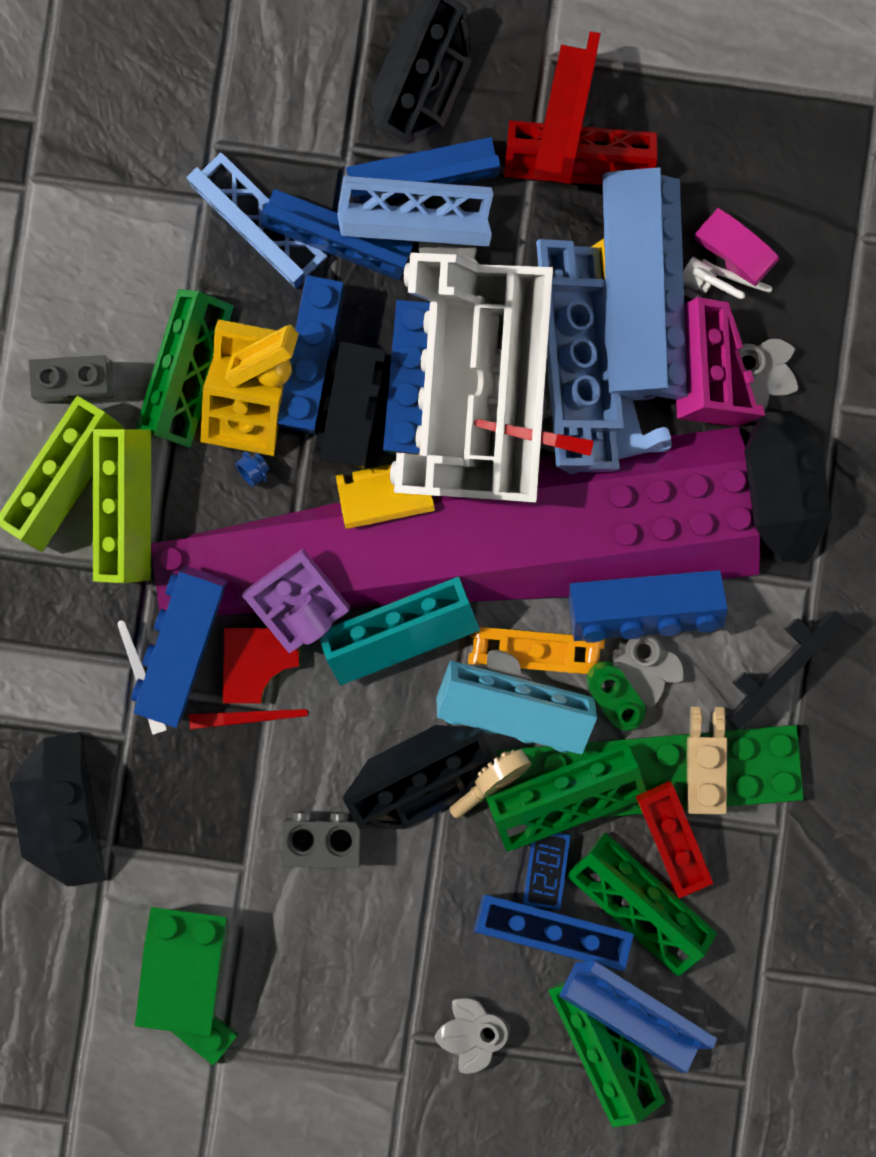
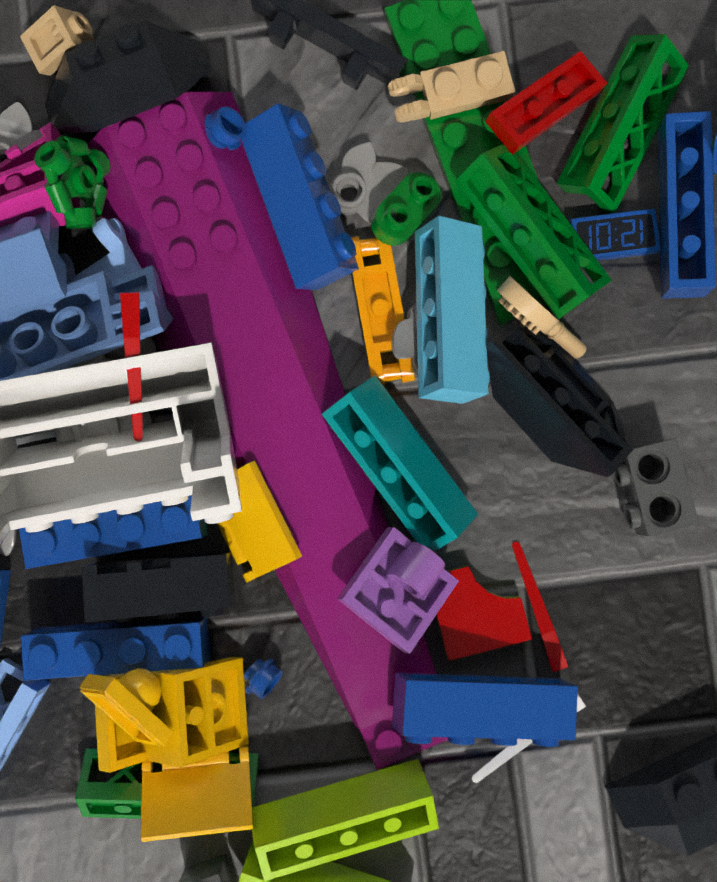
camera: 105 degrees left, 0 degrees up
(173, 391) = (196, 798): none -> yellow piece
(706, 424) = (78, 179): none -> green piece
(720, 560) = (225, 128): none -> blue plate
(841, 438) = (53, 36): none -> tan bracket

